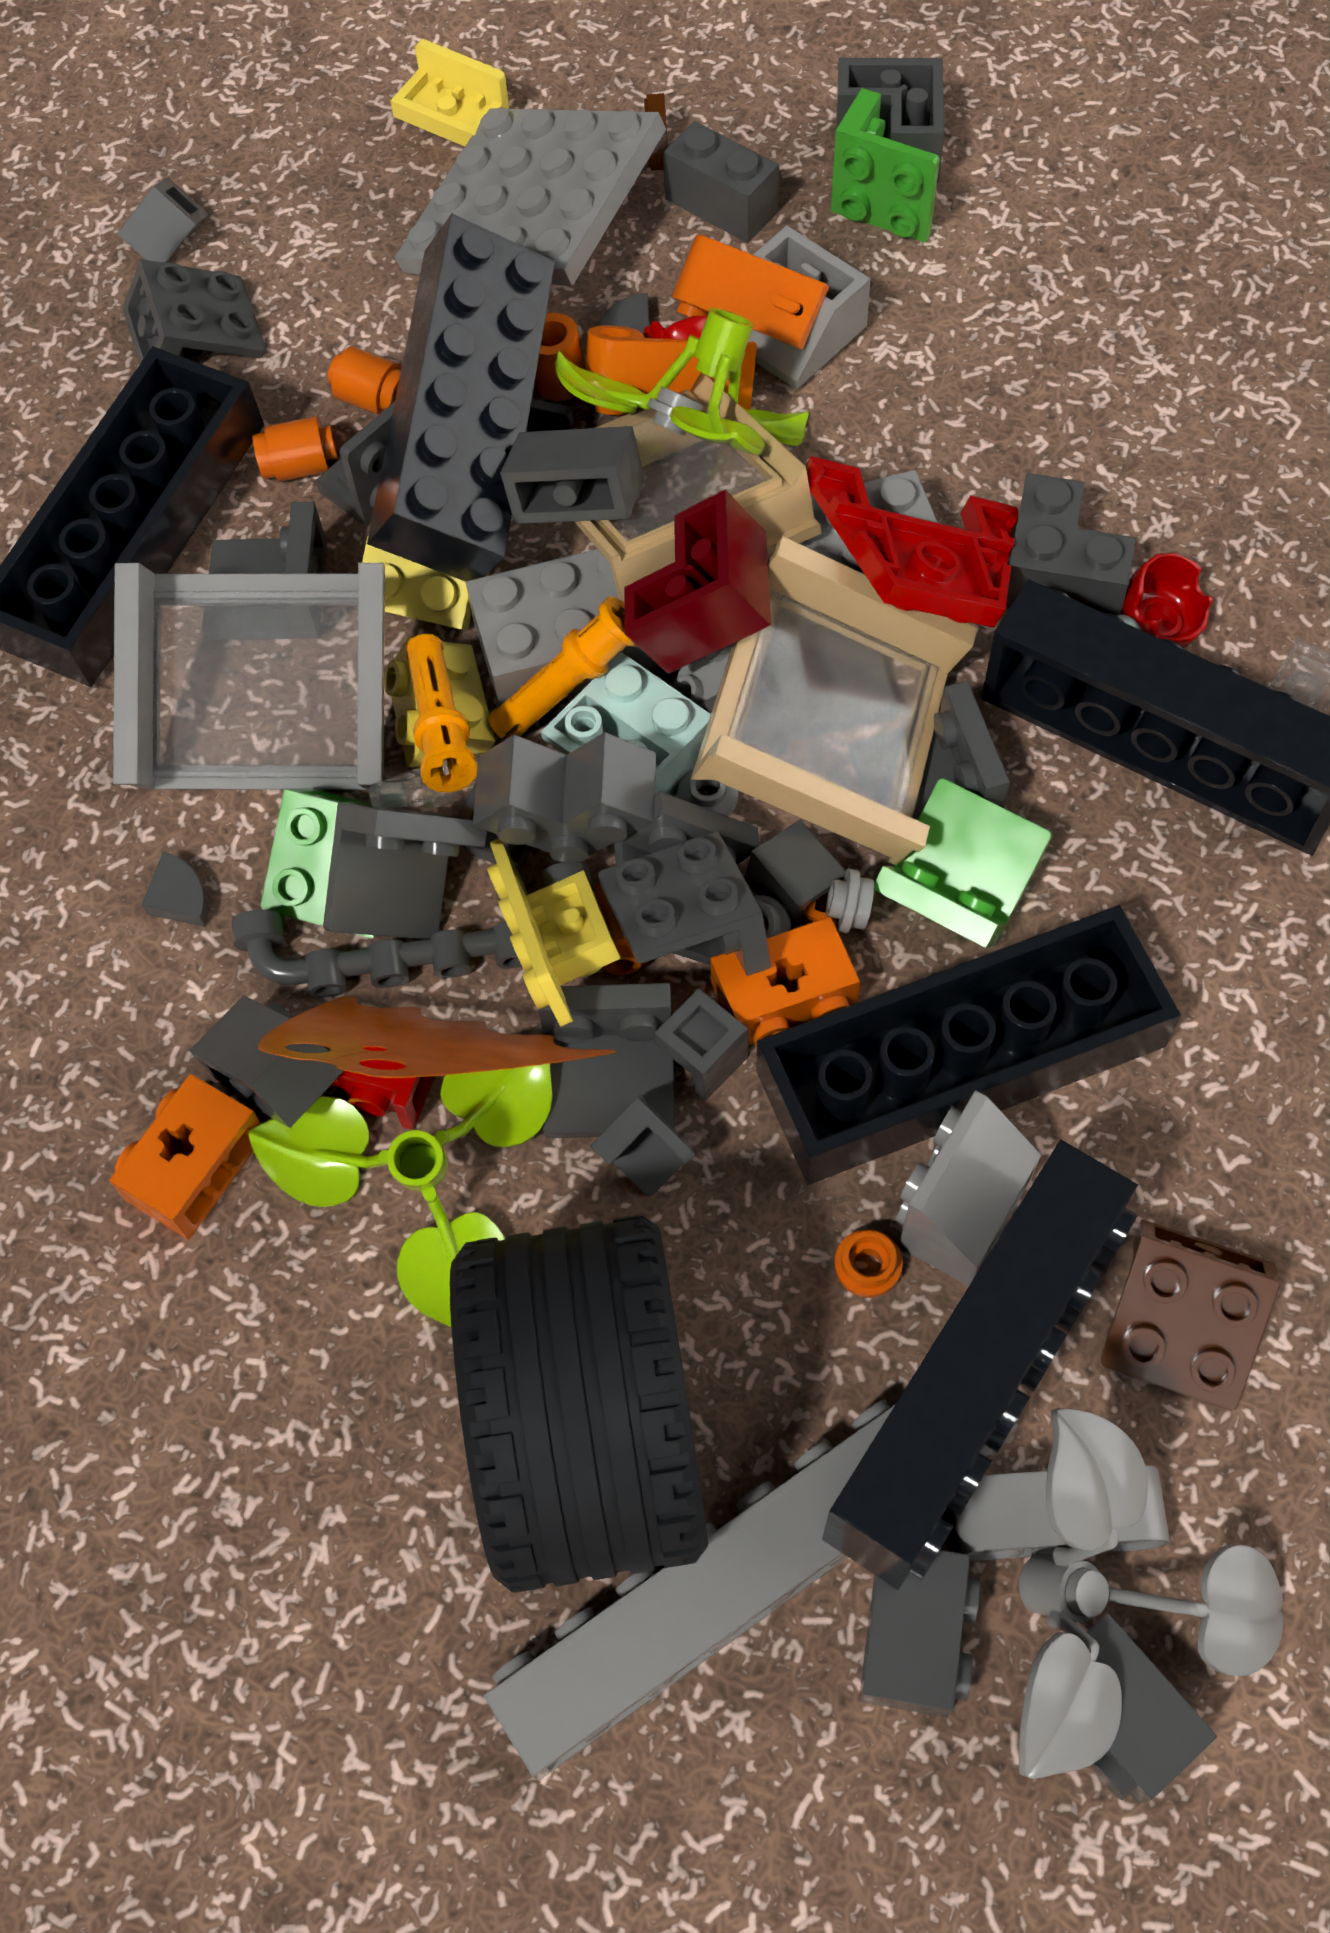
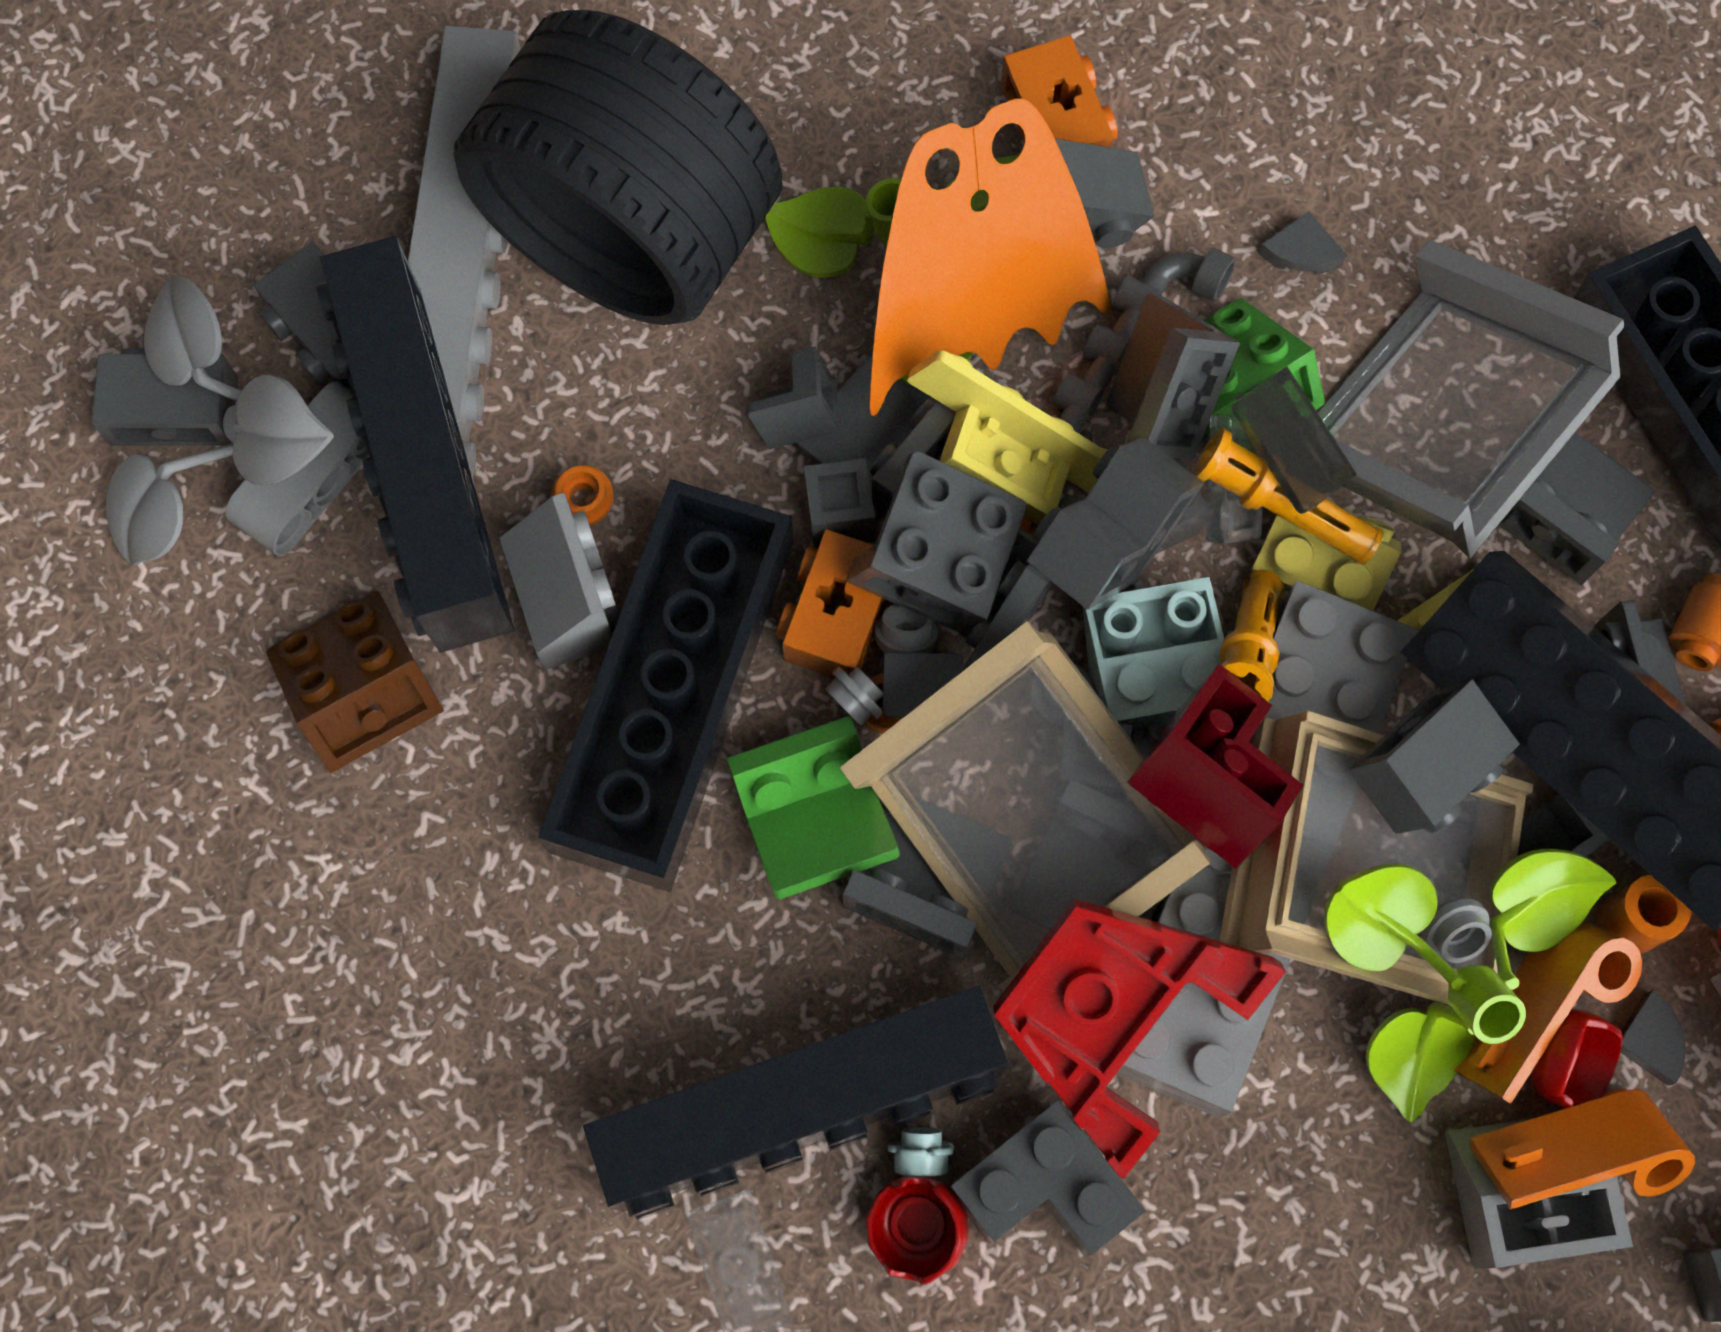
camera: 125 degrees right, 10 degrees up
(389, 727) = (1292, 439): none -> clear smoke panel

